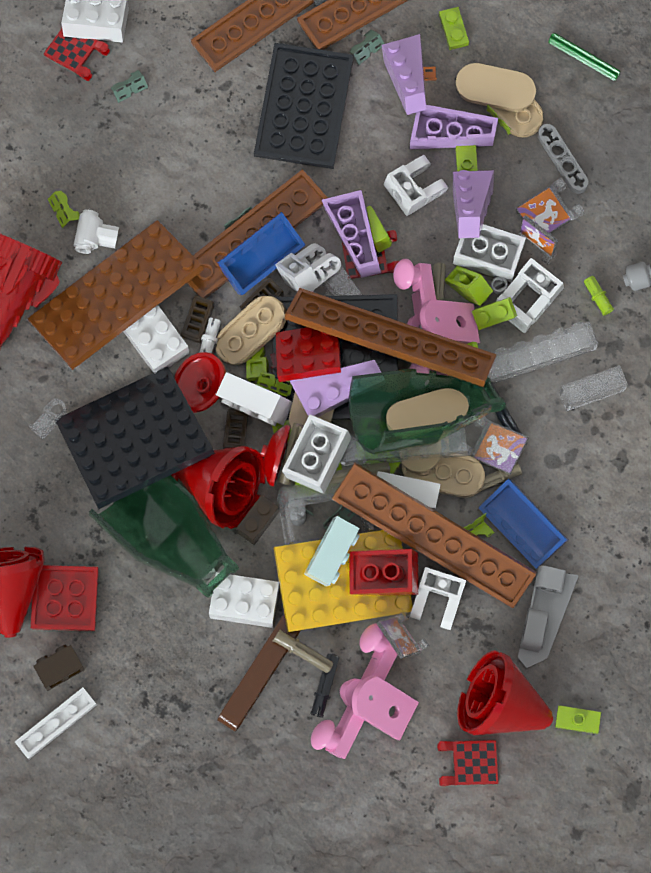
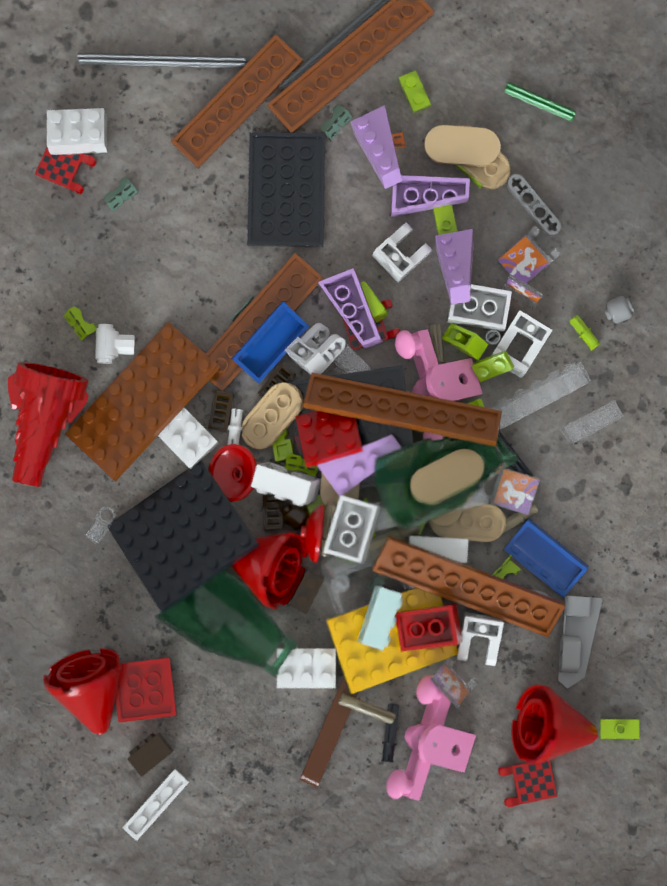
camera: 10 degrees left, 10 degrees up
(257, 436) = (295, 516): none -> dark brown head

